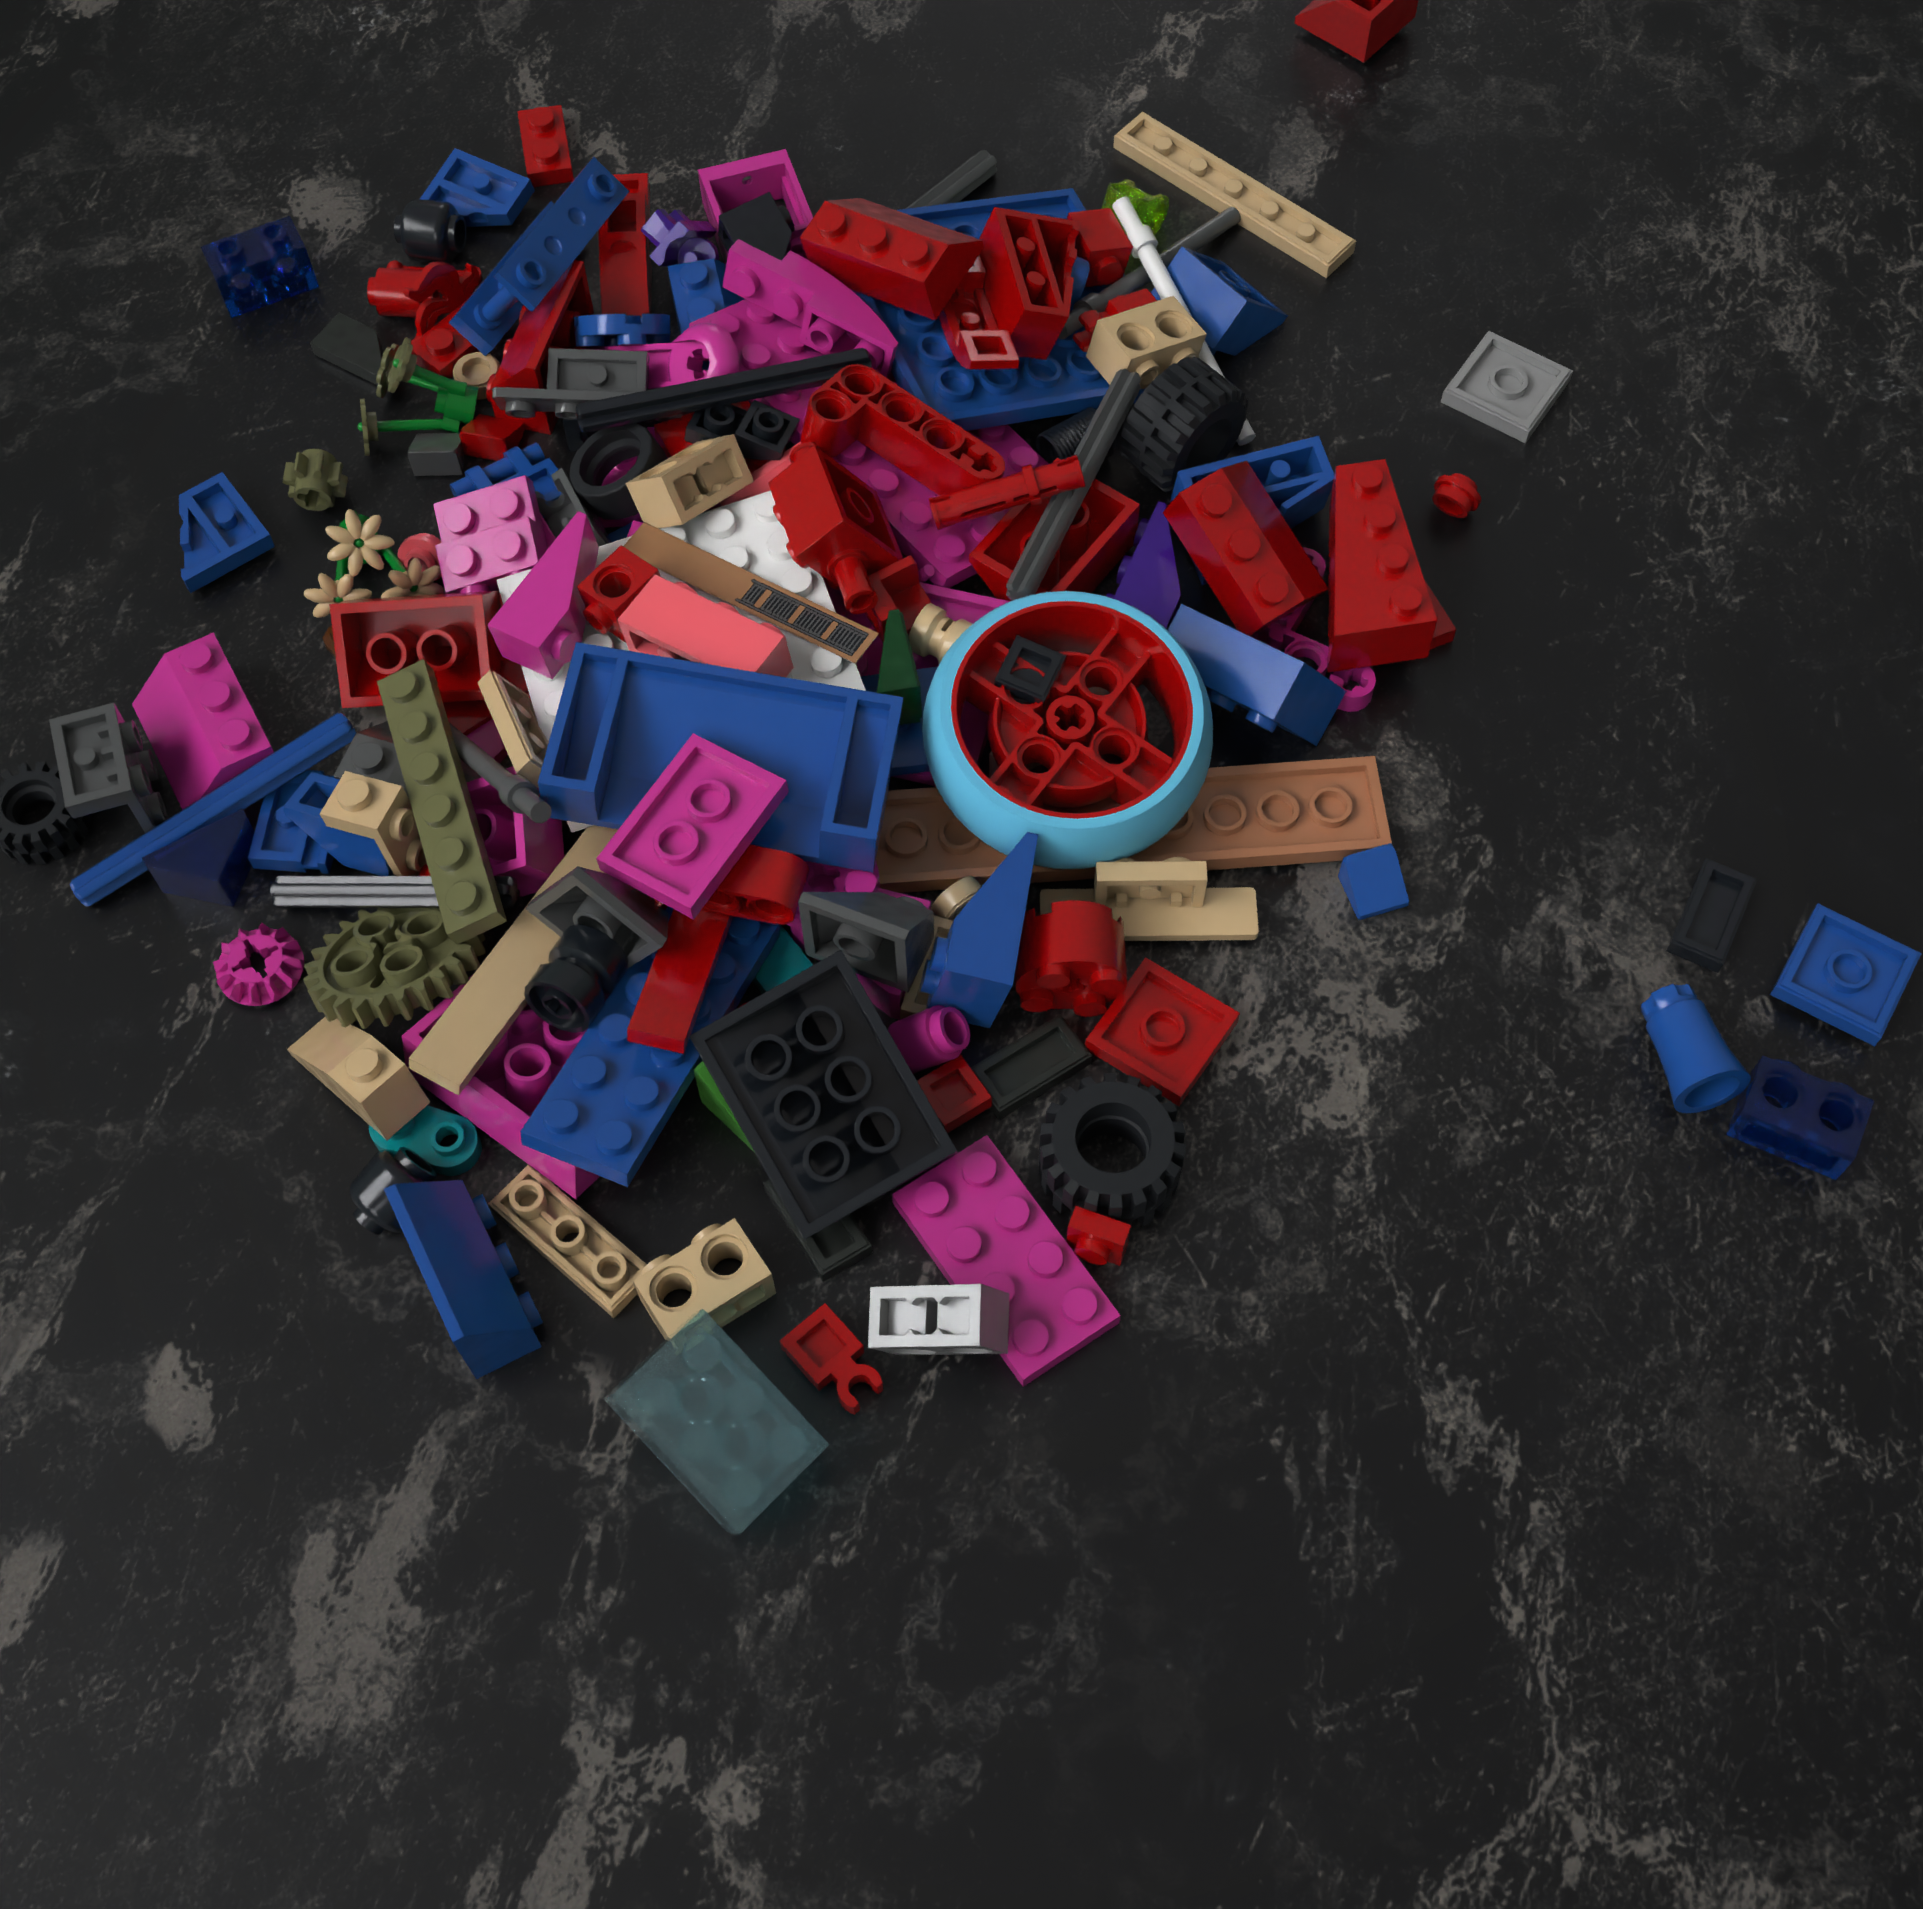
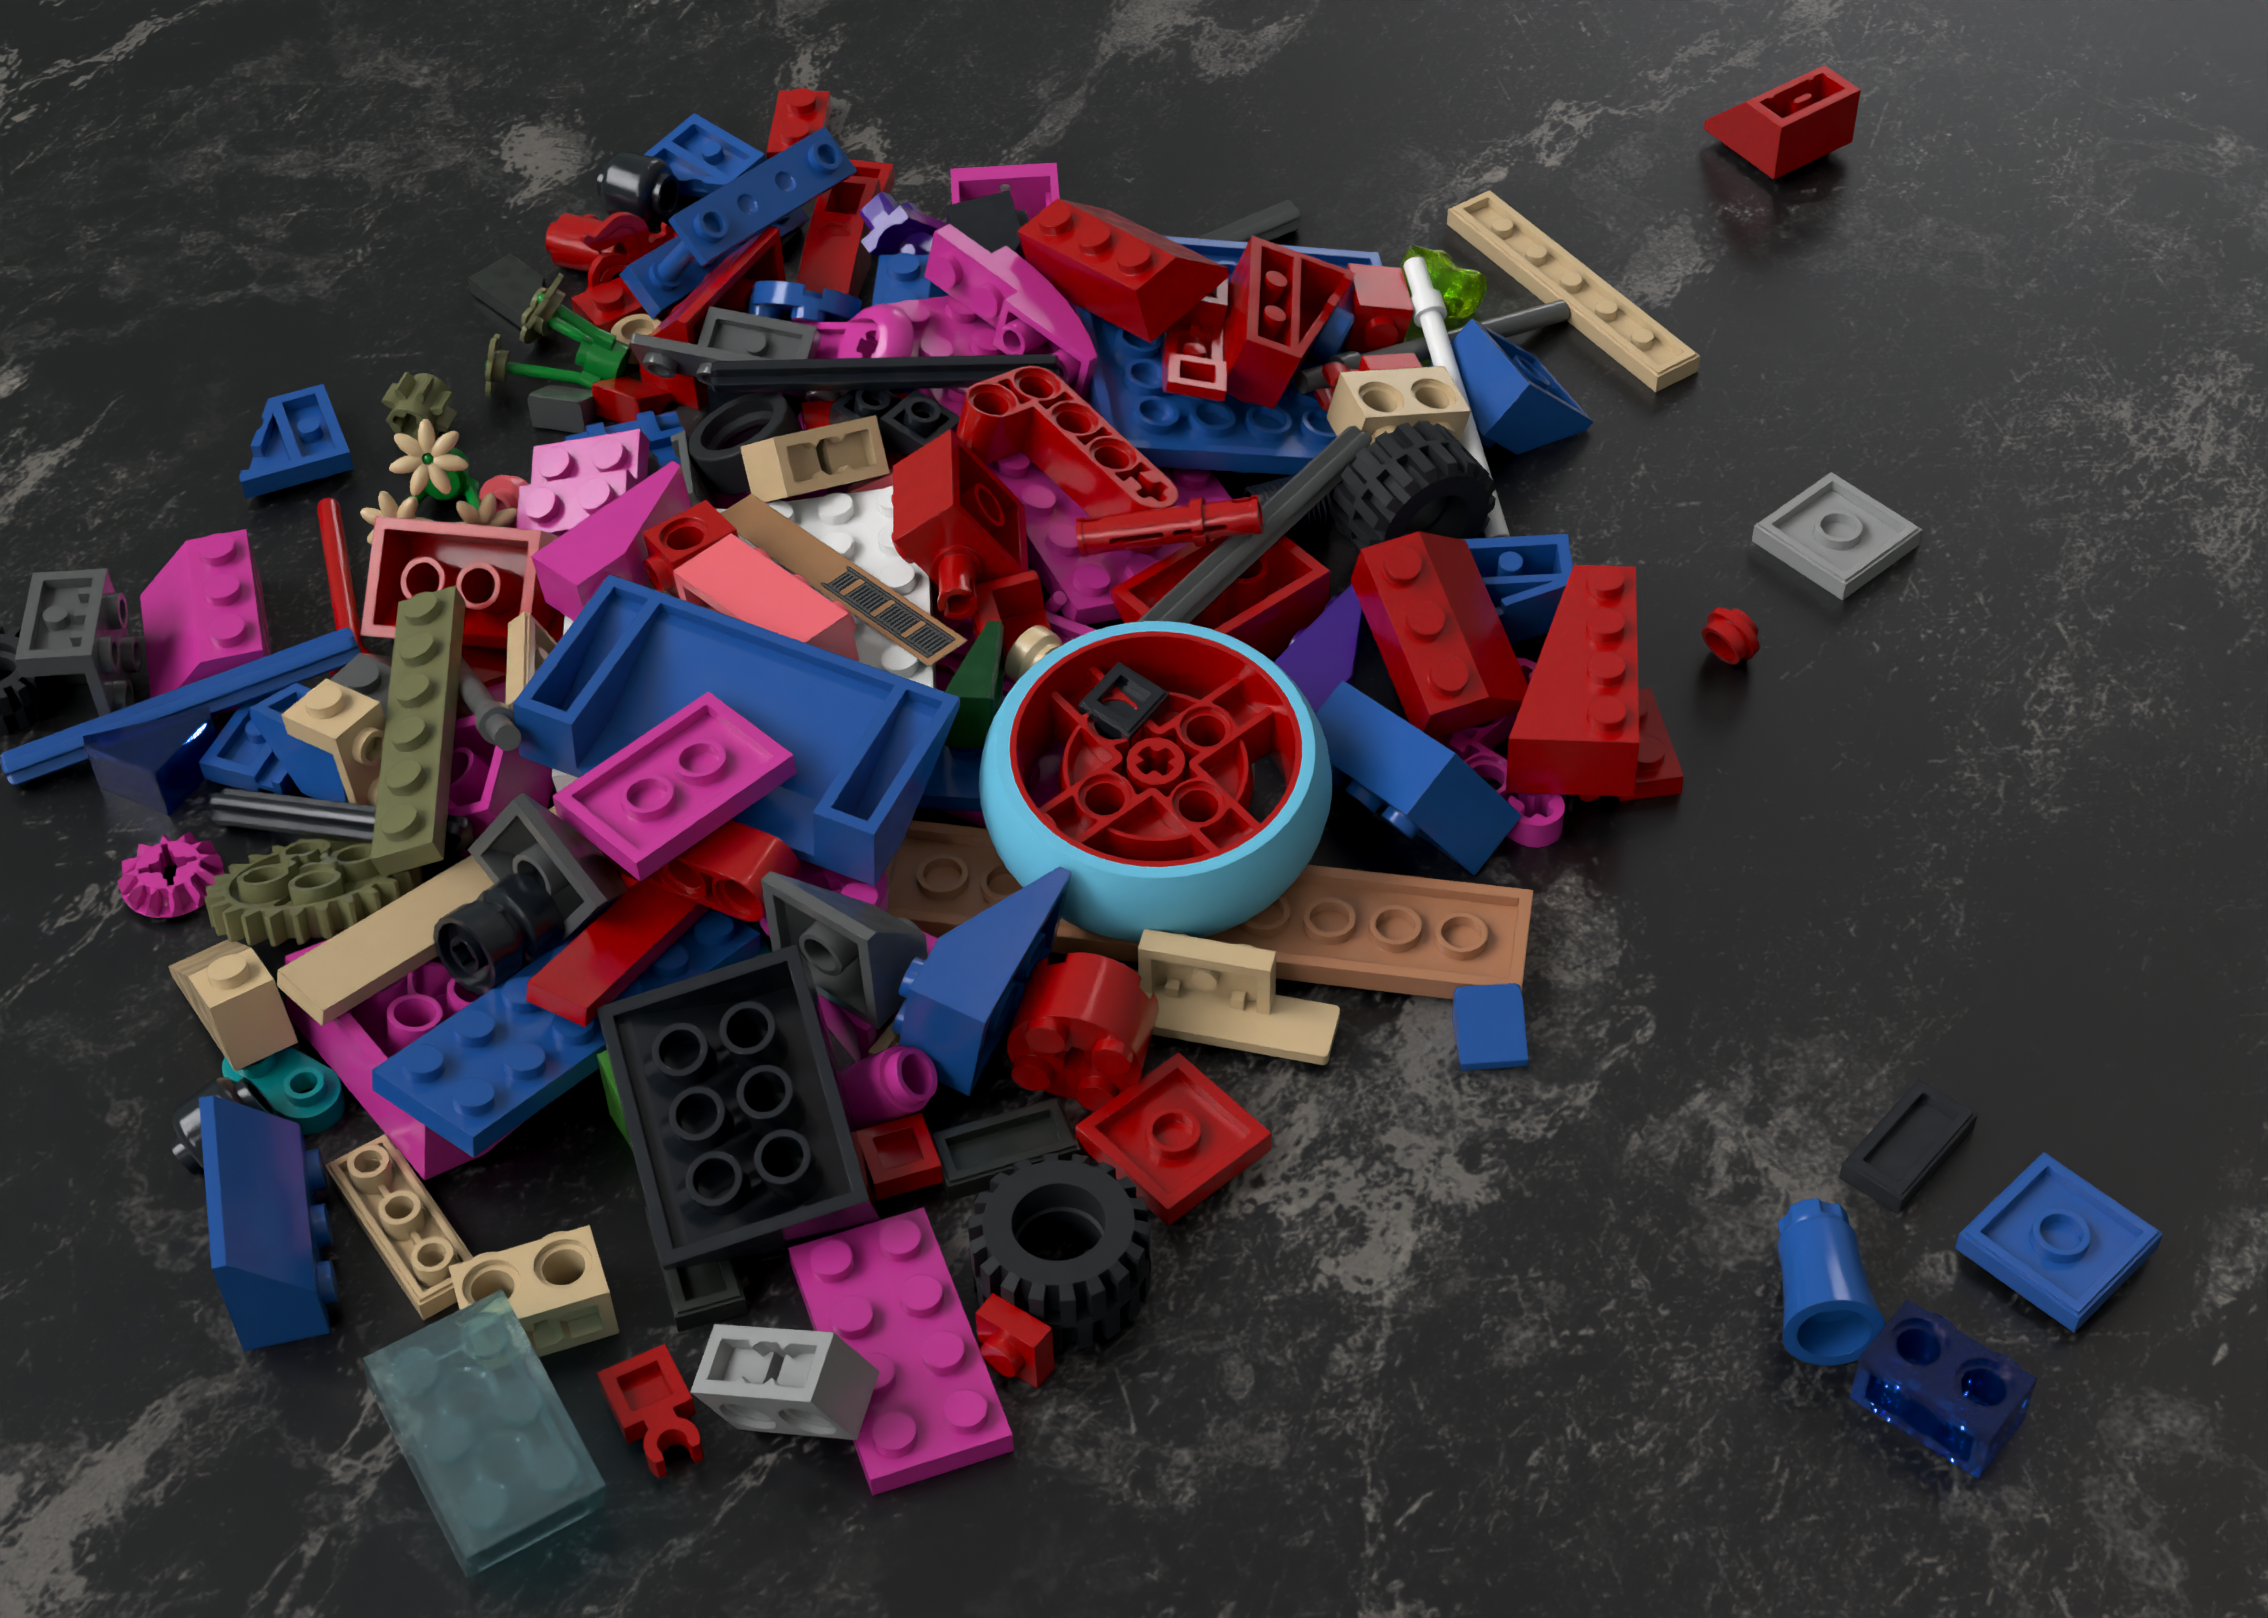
camera: 15 degrees right, 15 degrees down
(260, 266) = (443, 202): clear blue brick -> none
(302, 656) = (338, 569): none -> red piece

